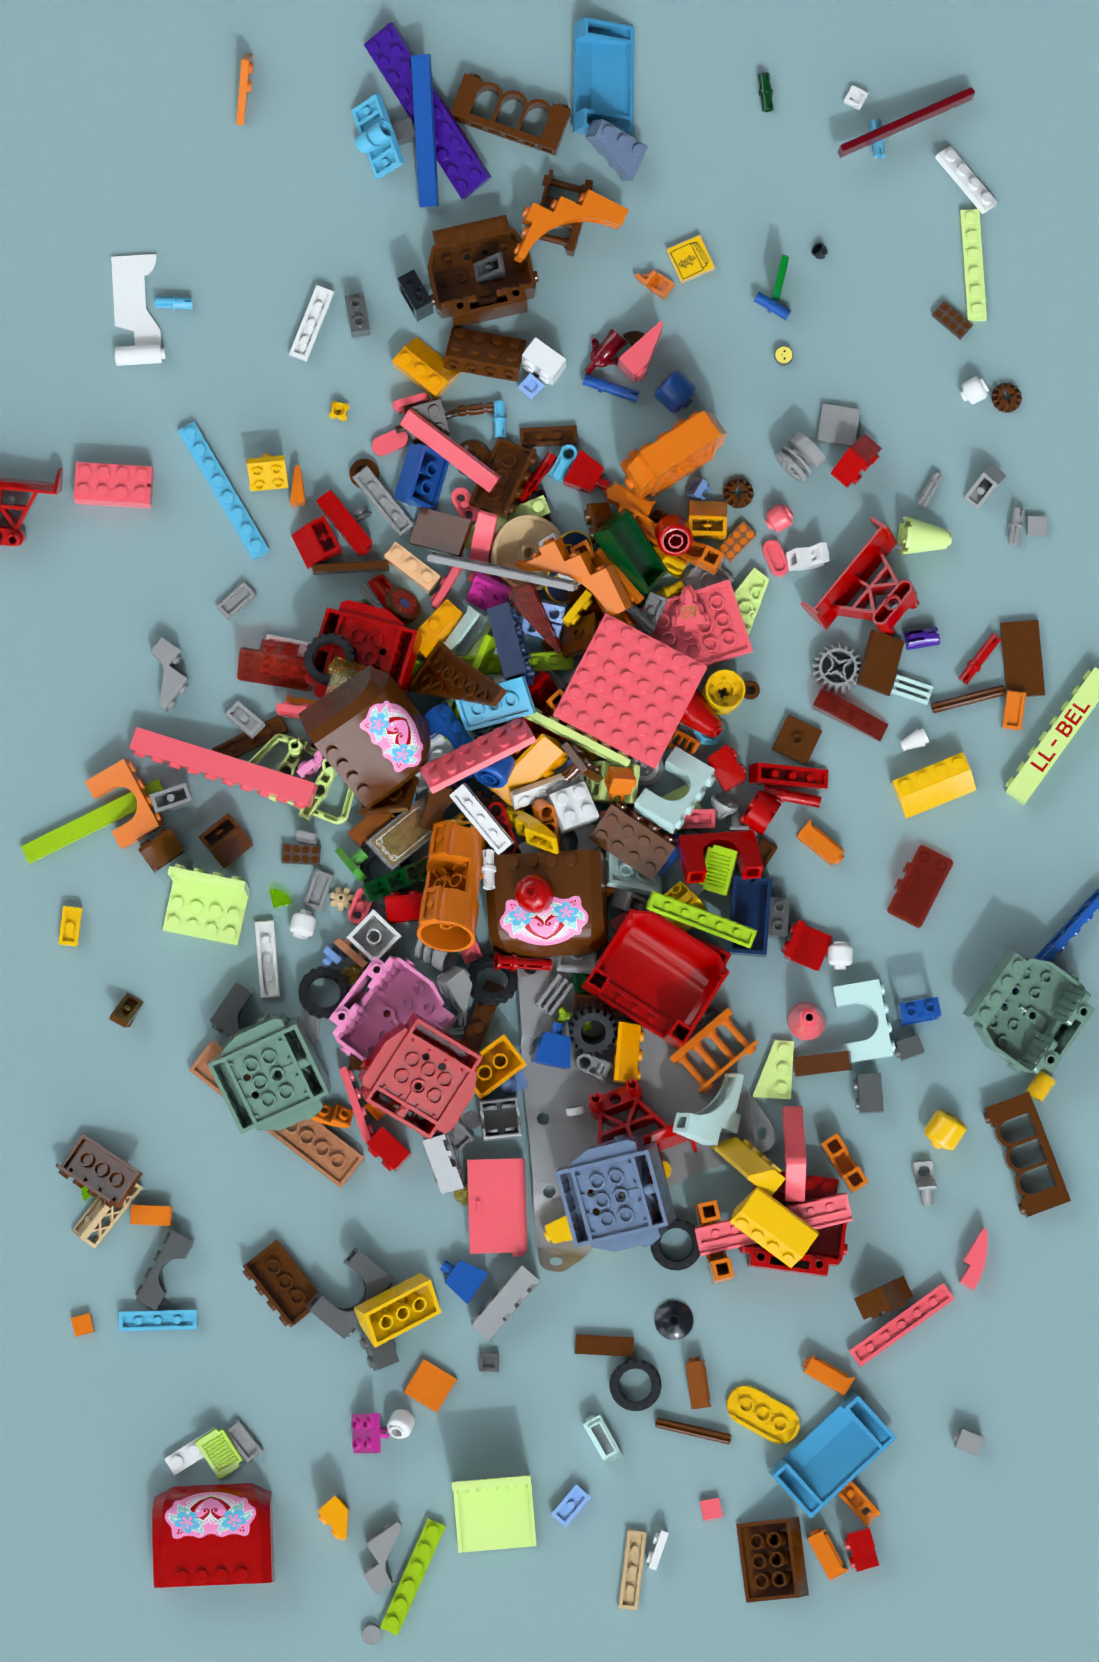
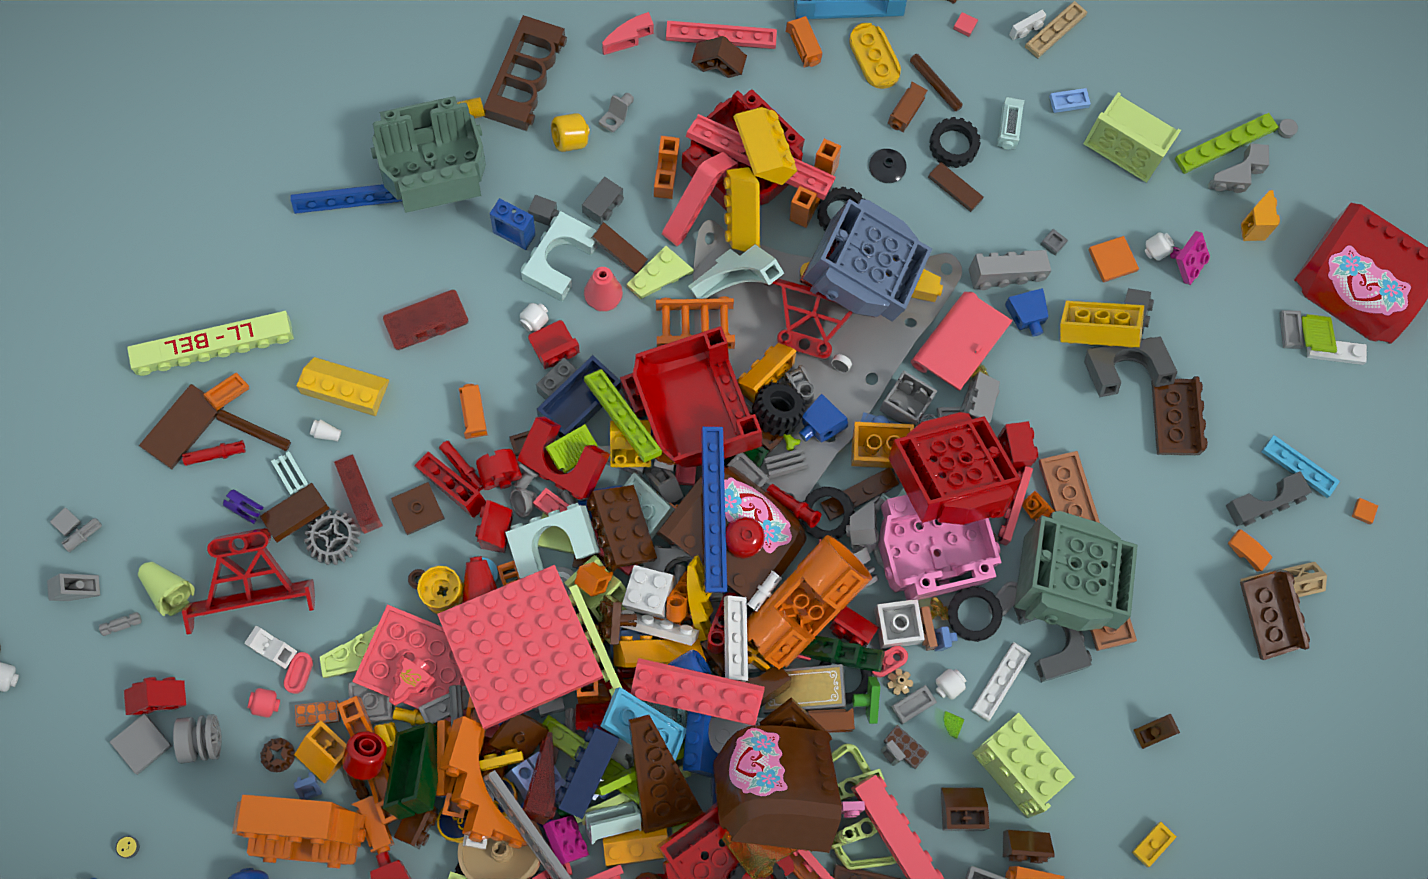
camera: 150 degrees left, 10 degrees down
(572, 894) = (714, 510): none -> blue plate

